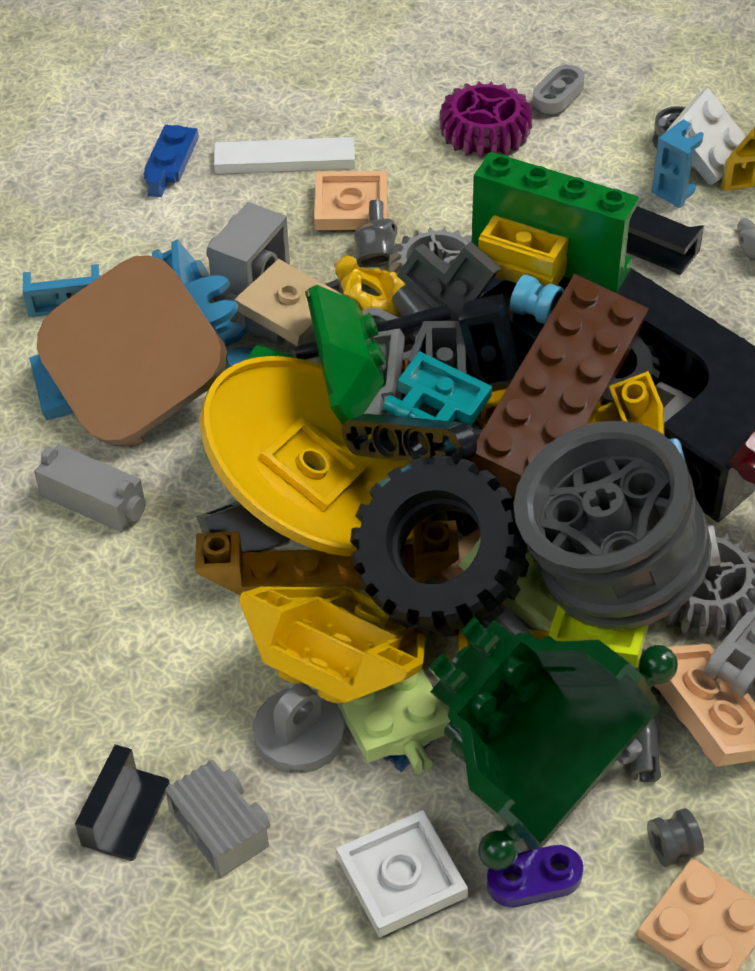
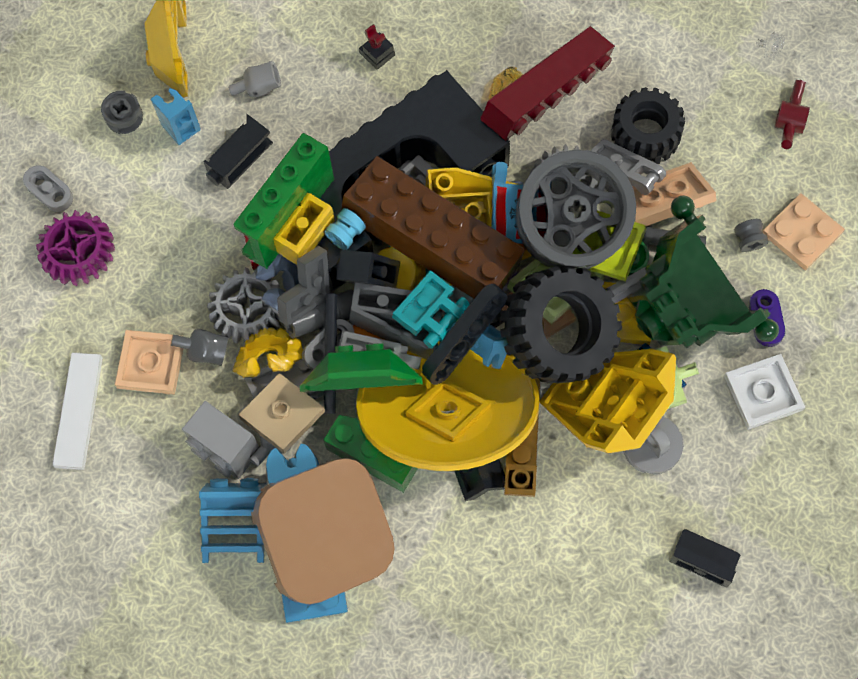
camera: 80 degrees left, 20 degrees up
(44, 297) = (213, 594): dark azure hinge -> none
(90, 487) = (434, 573): light grey brick -> none
(169, 157) = (59, 505): blue hinge -> none
(218, 817) = (721, 497): light grey brick -> none
(719, 137) = (137, 88): white plate -> none

